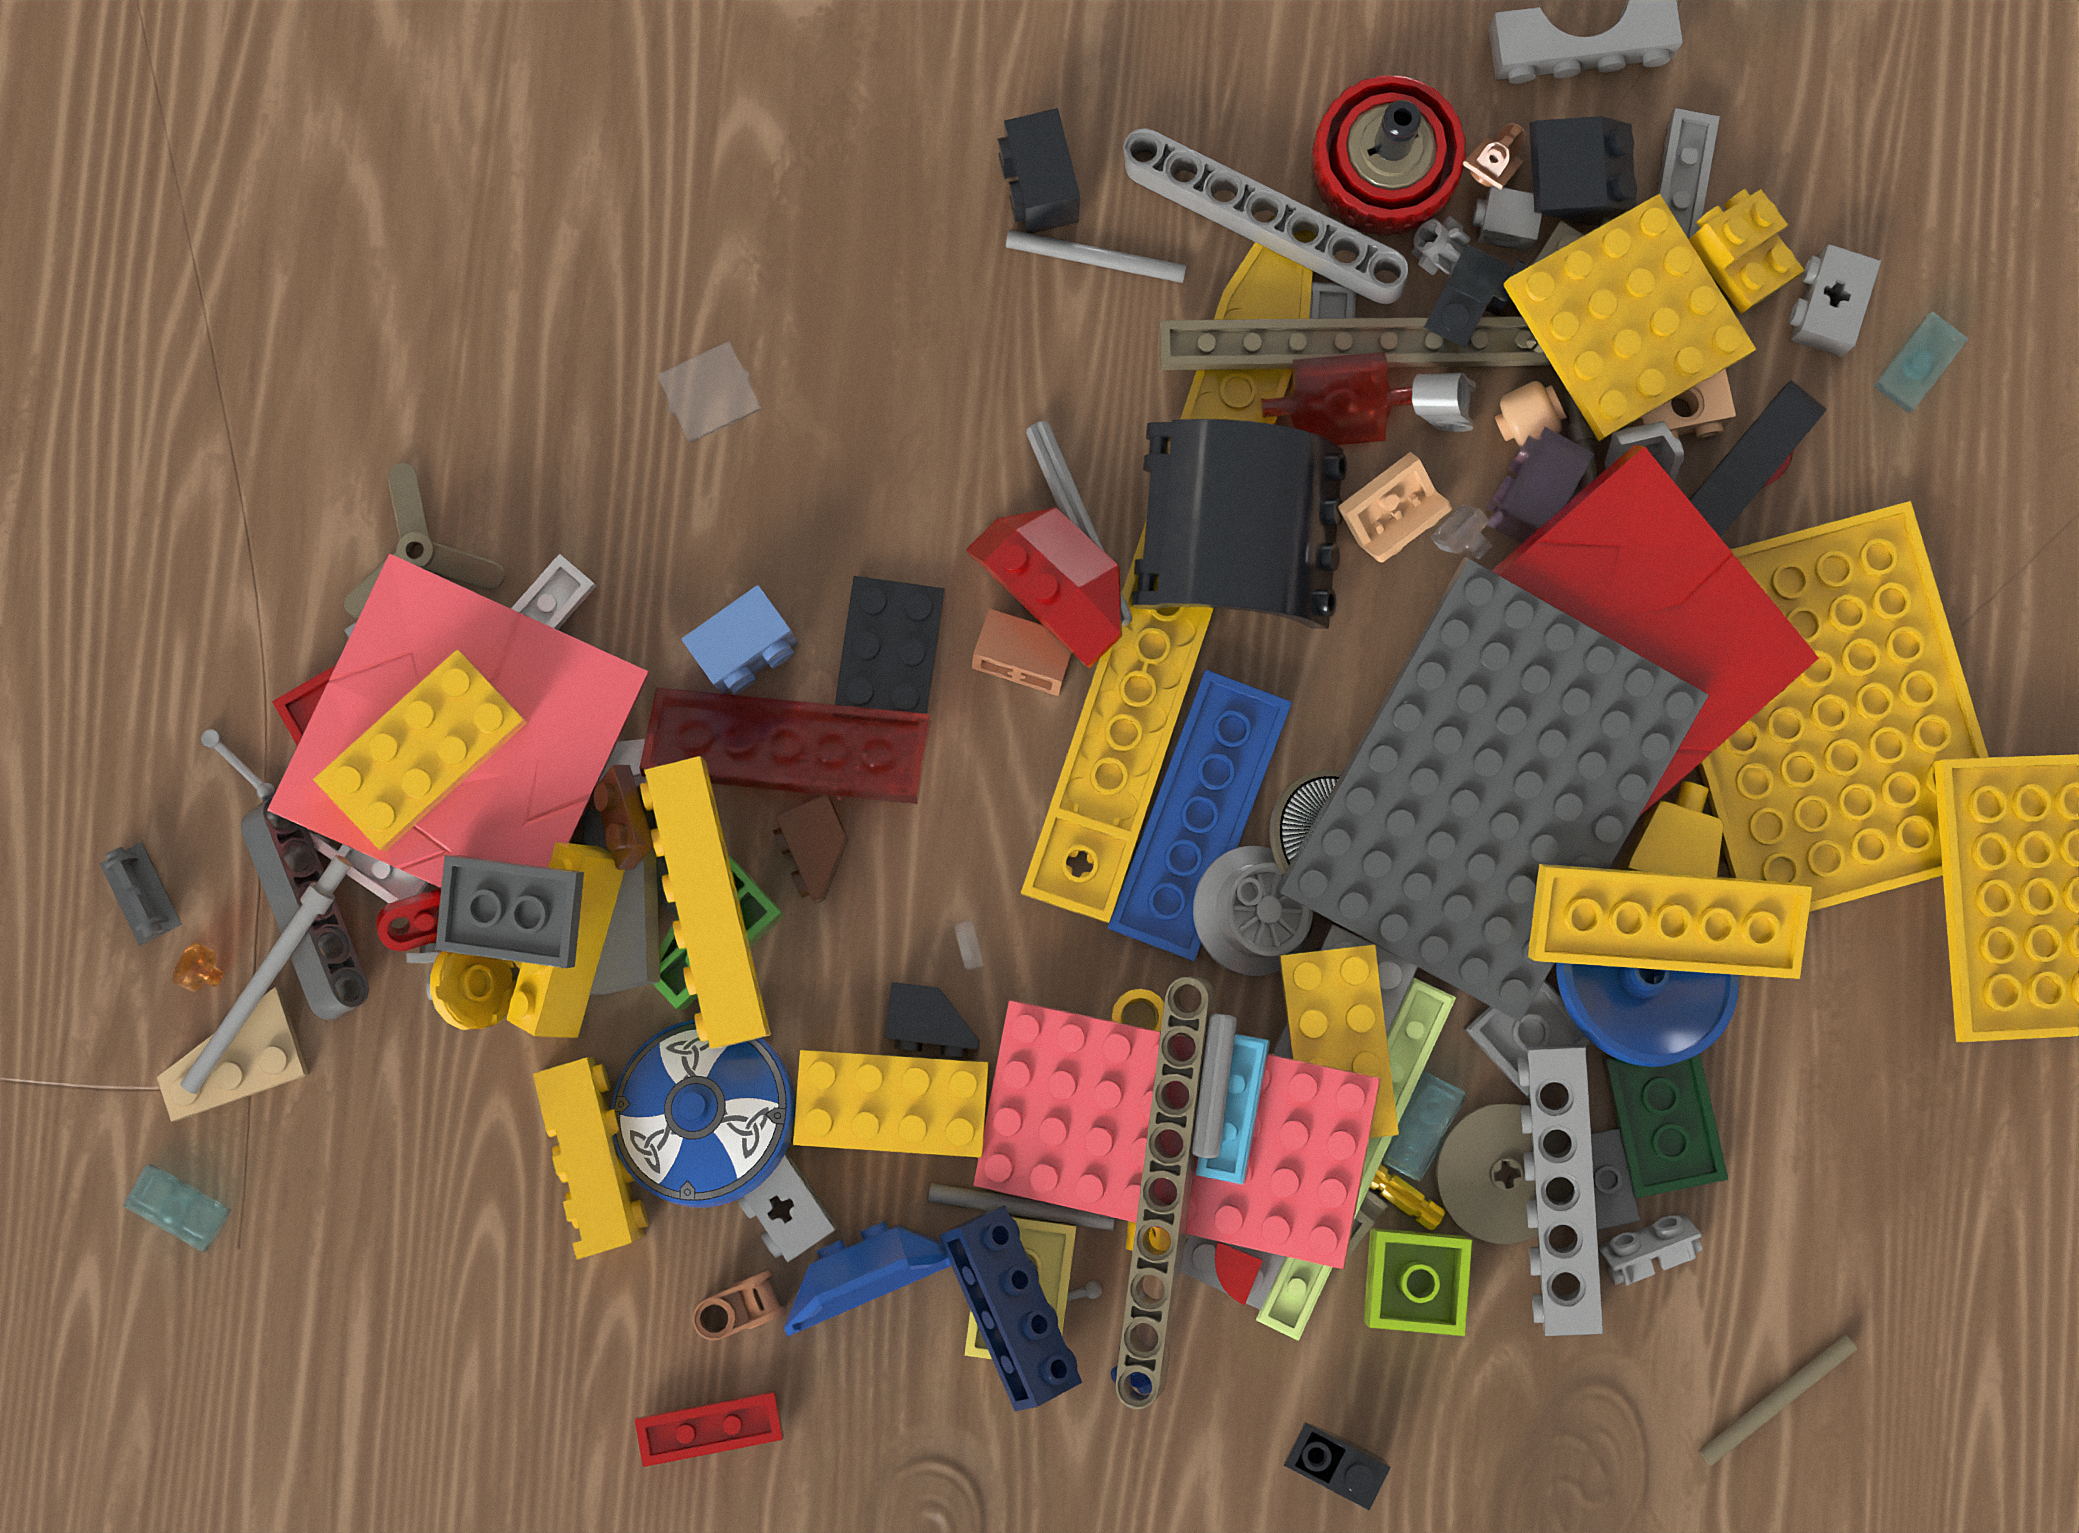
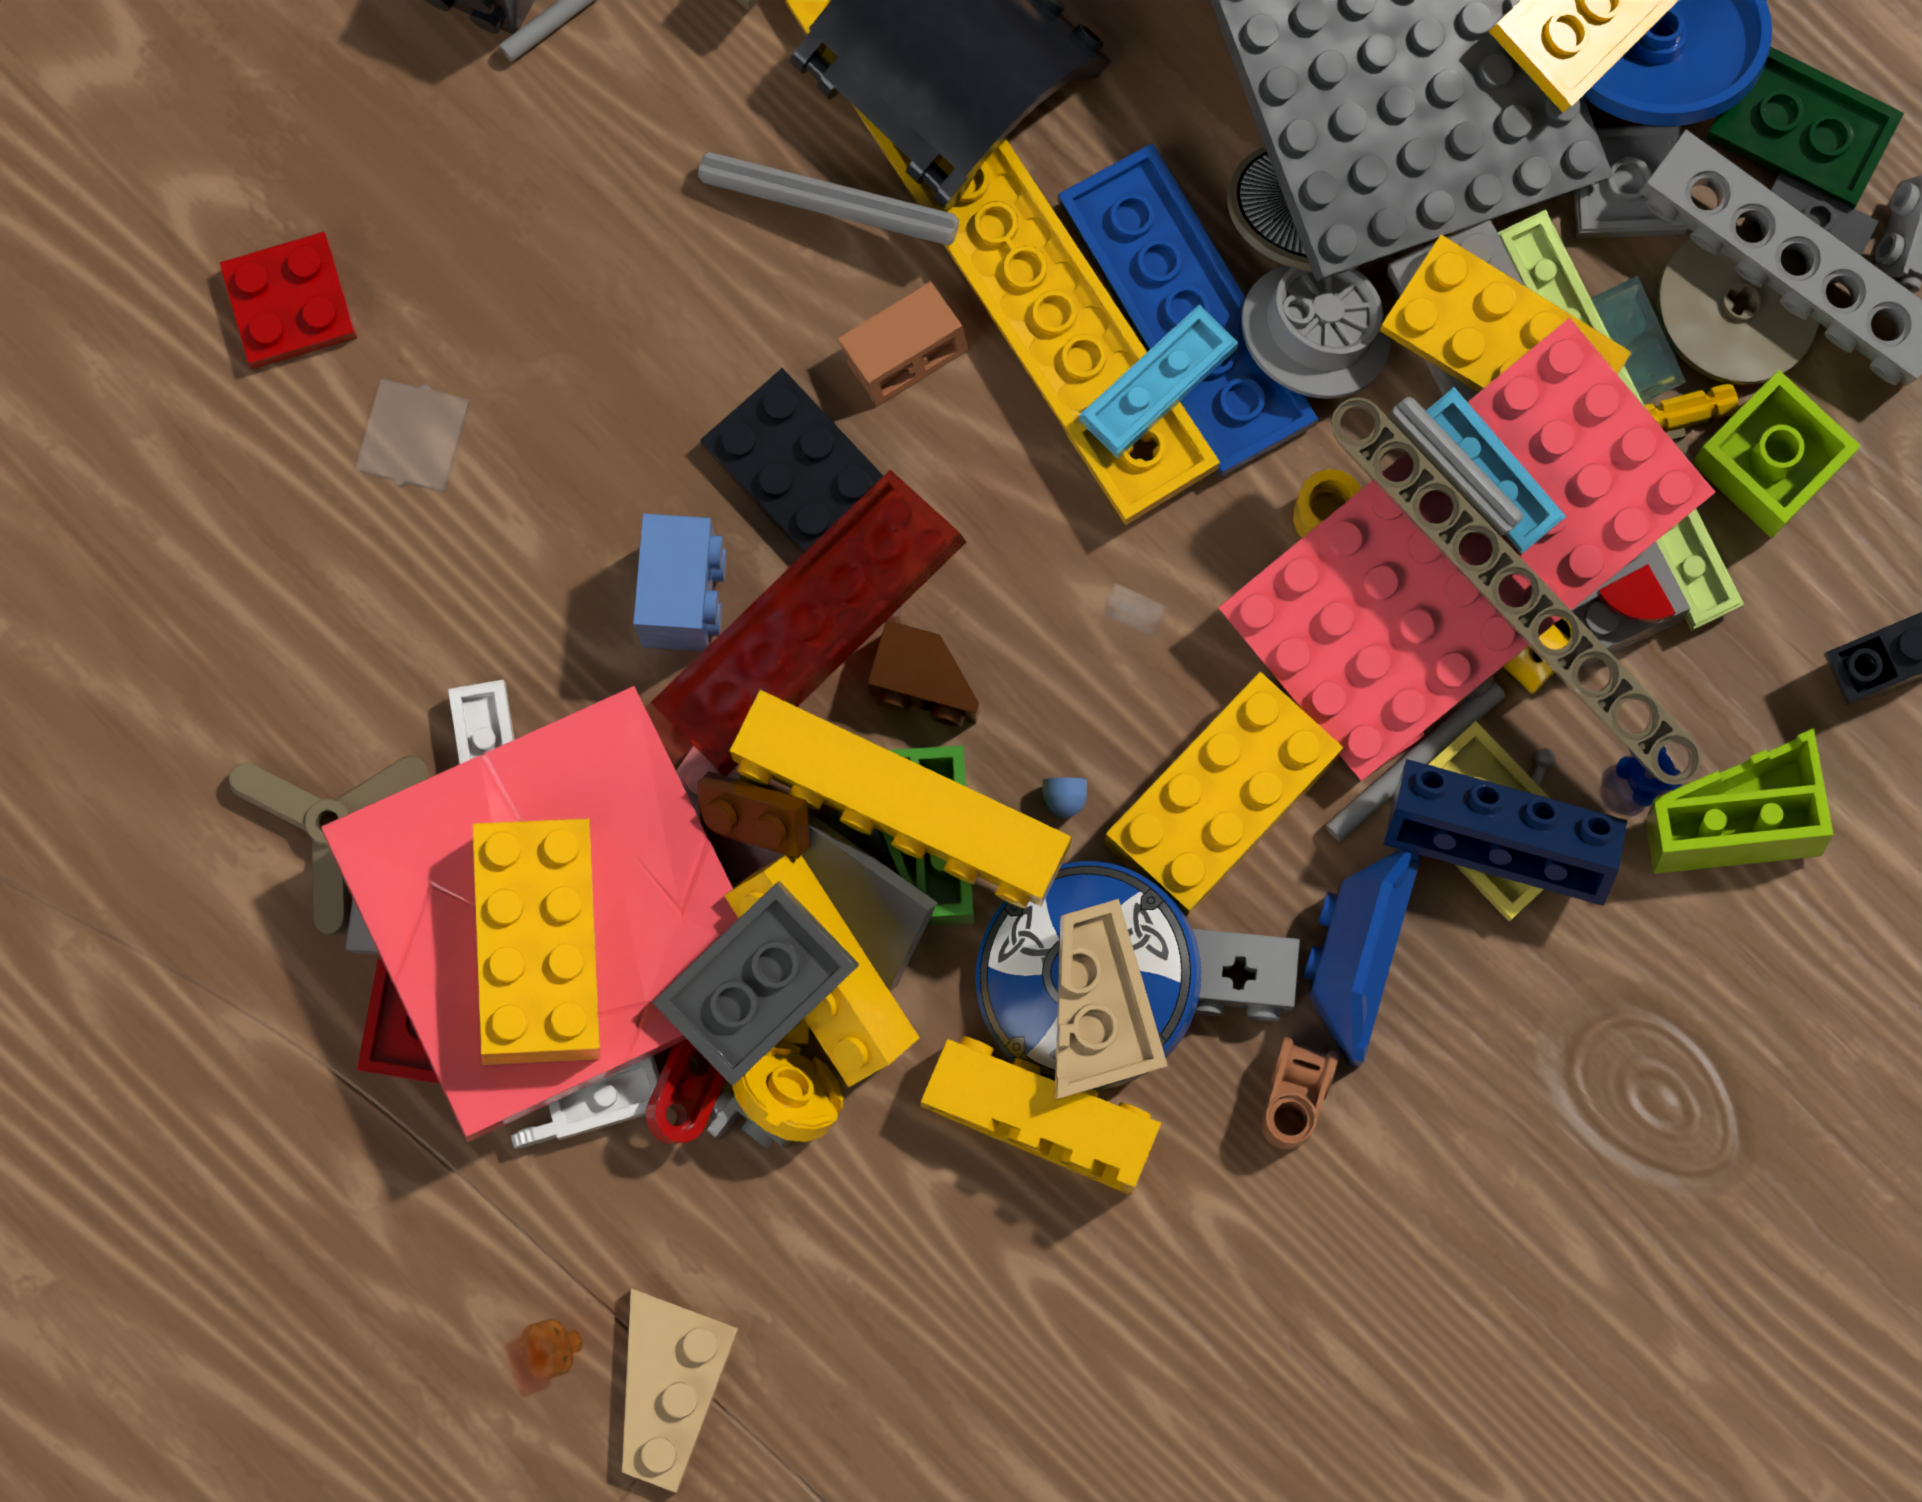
camera: 50 degrees left, 5 degrees down
(140, 893) = (431, 1348): dark grey hinge -> none
(213, 739) = (341, 1162): light grey hinge -> none
(284, 887) = (582, 1197): dark grey beam -> none
(315, 901) = (588, 1164): light grey bar -> none
(677, 1142) = (1102, 1004): none -> tan wing
(709, 1428) = (1388, 1212): red plate -> none
(731, 240) = (288, 300): none -> red plate
(811, 1000) = (1064, 796): none -> medium blue hinge
(927, 1016) = (1169, 700): black slope -> none
(1056, 577) = (860, 255): red wedge -> none
(1129, 838) = (1158, 381): none -> medium azure tile
(1159, 1454) = (1745, 815): none -> lime wedge

